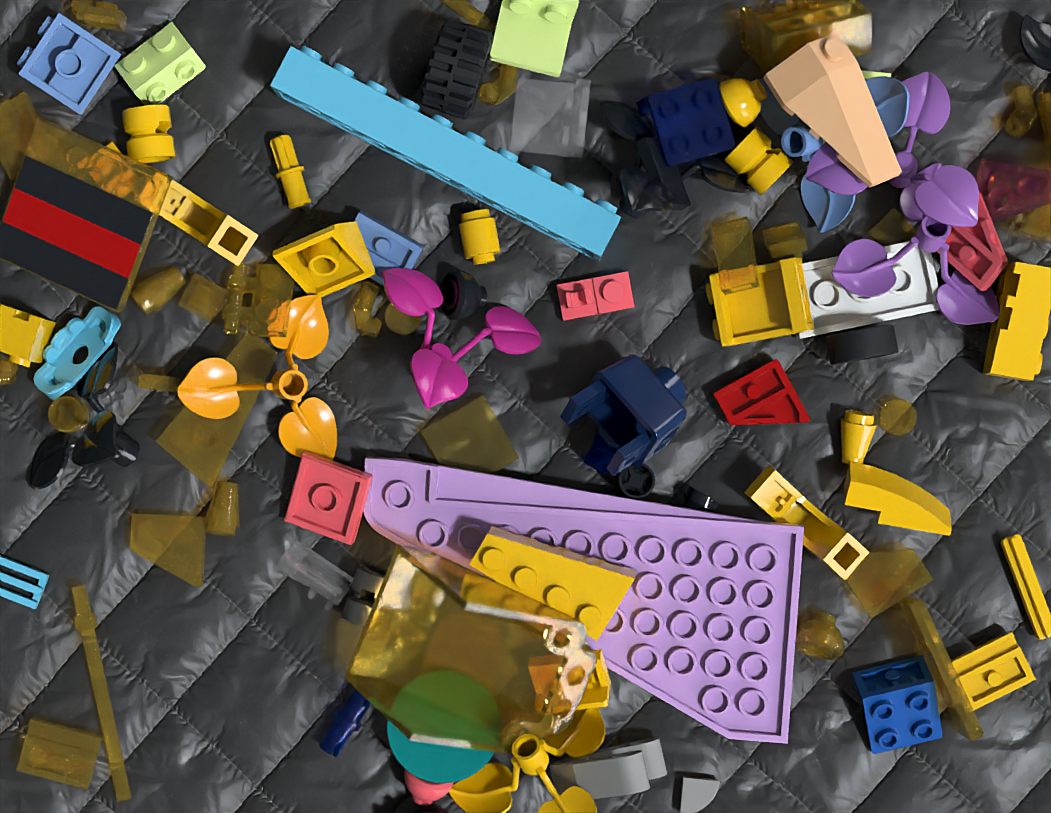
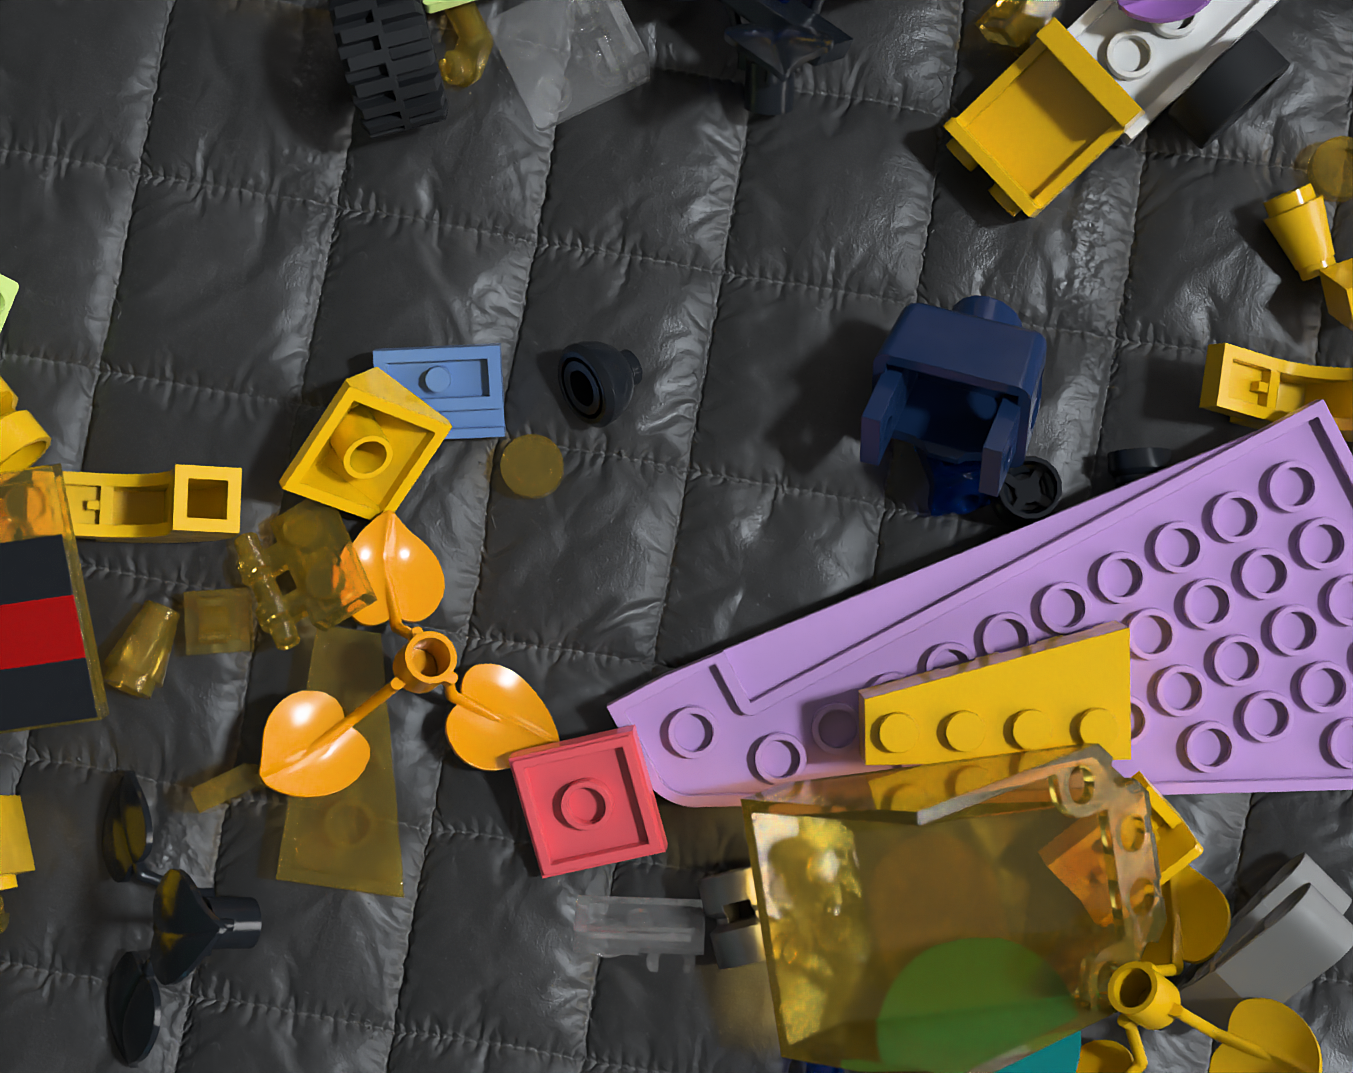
camera: 30 degrees left, 5 degrees down
(58, 413) = (107, 918): clear yellow wheel -> none
(59, 371) = (67, 863): medium azure piece -> none
(171, 543) = (394, 1019): clear yellow wing -> none
(224, 510) = (443, 920): clear yellow cone -> none
(289, 171) = (235, 358): yellow axle -> none
(362, 311) = (467, 491): clear yellow arm -> none
(433, 366) = (627, 506): dark pink plant -> none
(444, 153) = (447, 184): medium azure brick -> none
(471, 439) = (745, 584): clear yellow tile -> none
(479, 236) = (572, 280): yellow brick -> none
(595, 296) = (795, 264): coral plate -> none
(735, 255) = (963, 77): clear yellow tile -> none
(761, 398) = (1131, 261): red wing -> none

